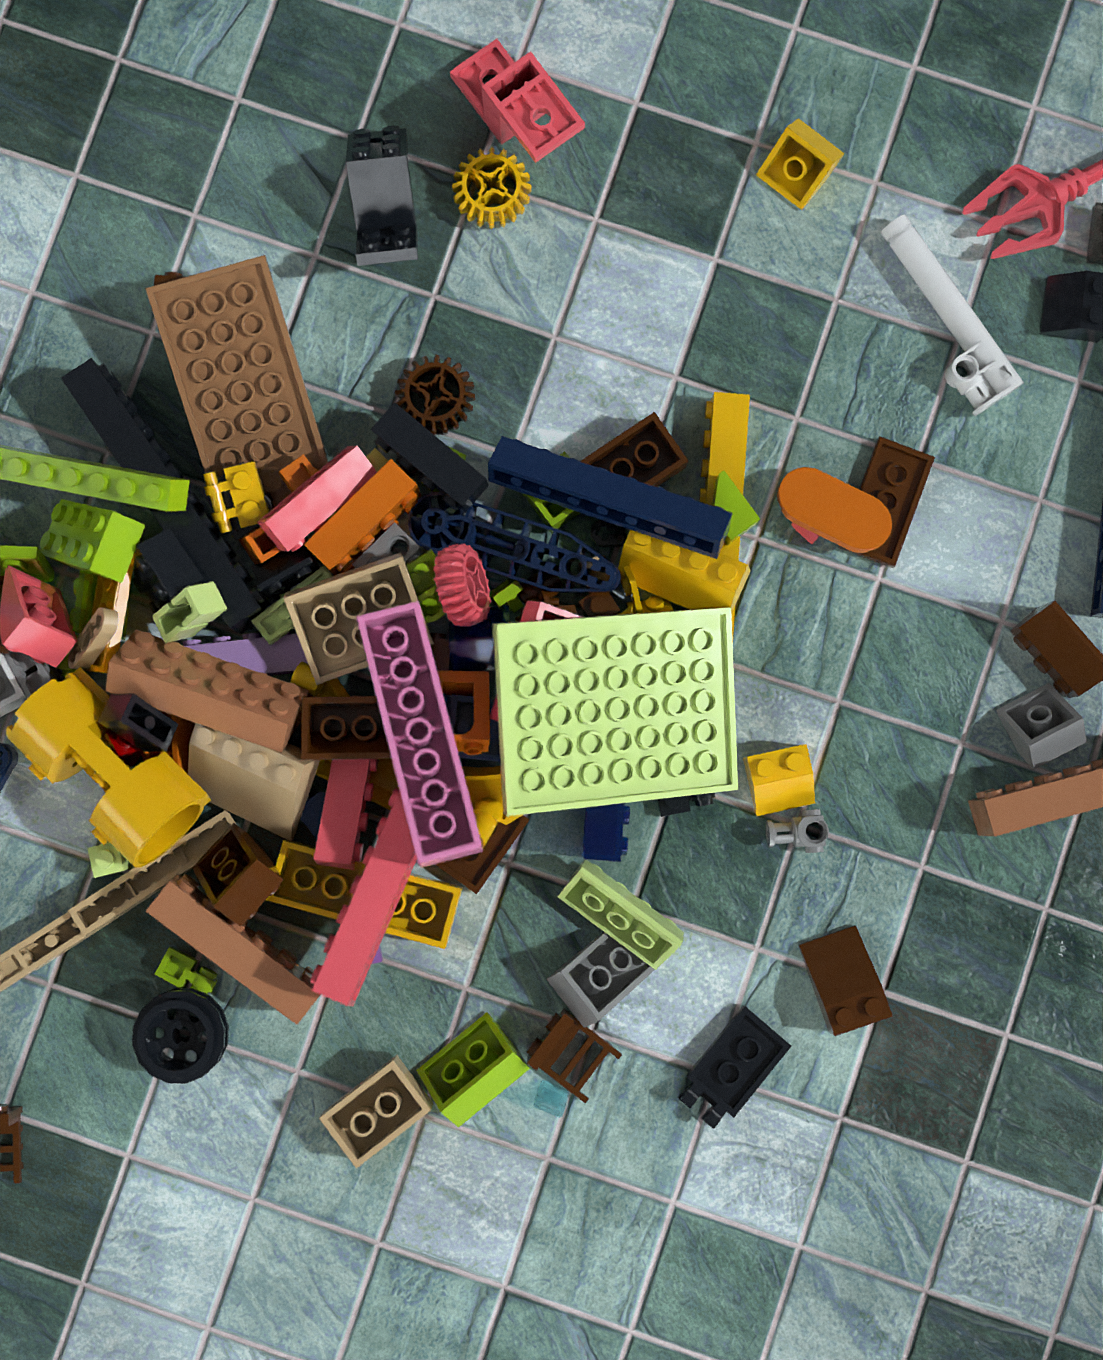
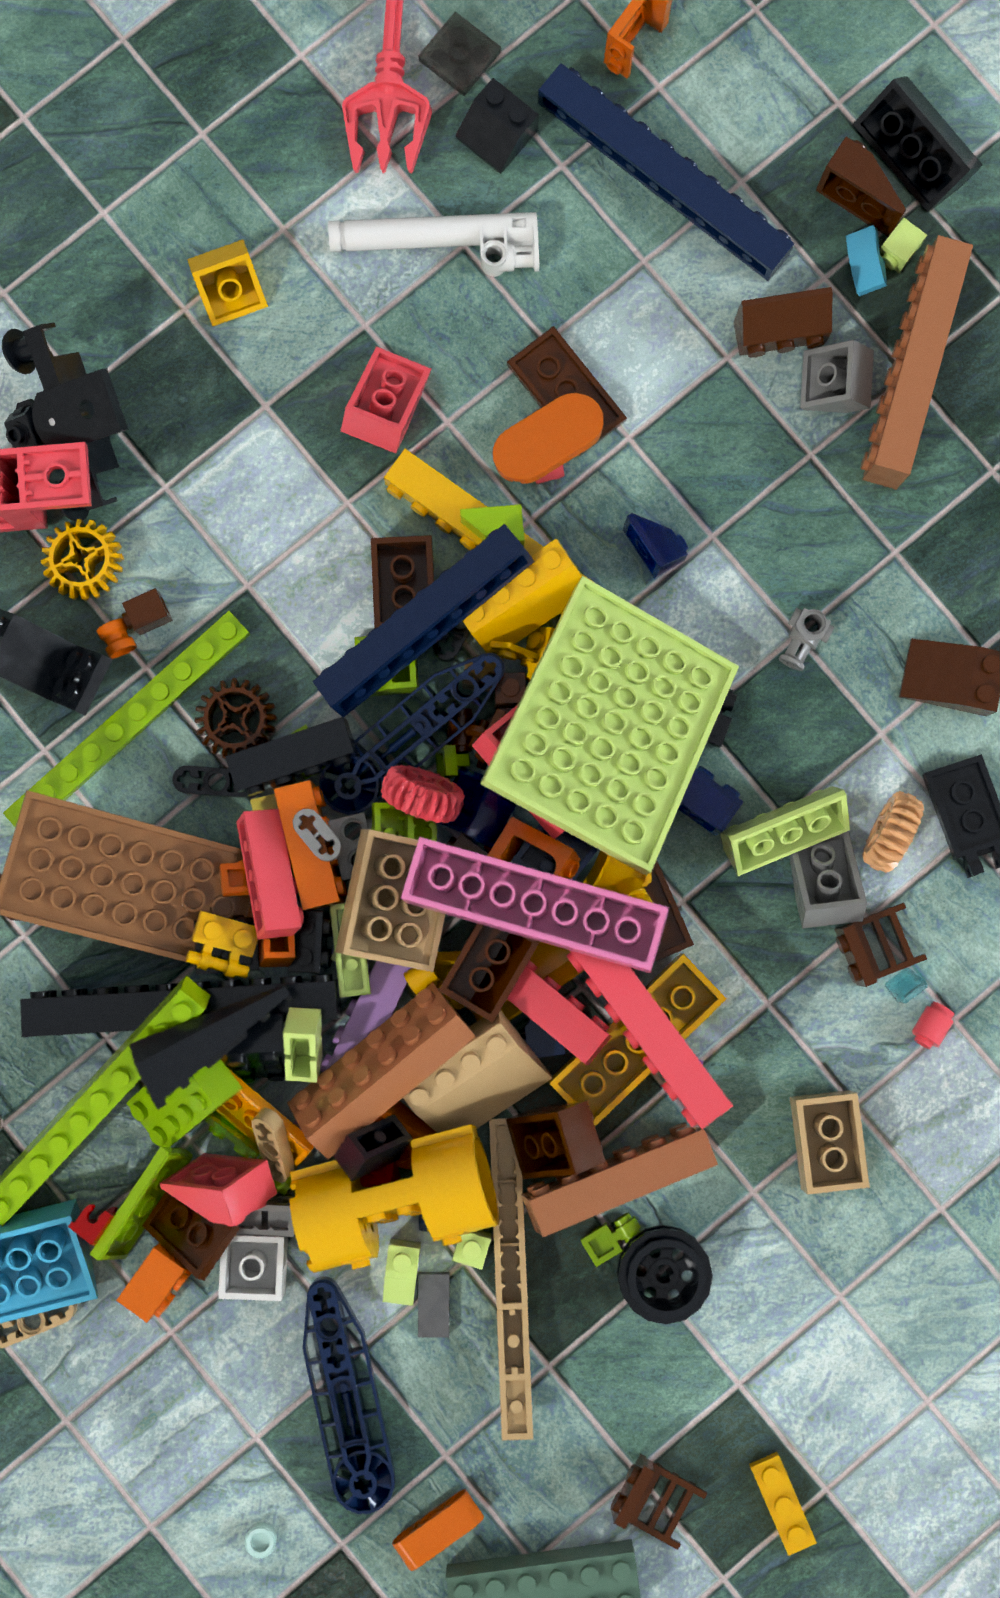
camera: 60 degrees left, 0 degrees up
(44, 856) = (433, 1304): none -> flat silver tile
(49, 1253) = (782, 1503): none -> yellow plate
(56, 811) = (401, 1272): none -> yellowish green slope
(113, 508) = (177, 1053): none -> black wedge
(357, 397) = (193, 788): none -> black beam
(366, 515) = (323, 830): none -> light grey beam
(394, 313) = (138, 712): none -> lime plate
(443, 256) = (115, 636): none -> orange wheel
(472, 1070) = (841, 1038): lime slope -> none
(480, 267) = (146, 612): none -> reddish brown brick
(531, 1142) = (933, 1025): none -> coral brick
(605, 96) = (68, 410): none -> black piece
(675, 1008) = (893, 831): none -> light nougat gear
(780, 779) = (750, 625): yellow slope -> none
(782, 354) = (385, 400): none -> coral slope
(799, 656) = (655, 544): none -> clear blue slope

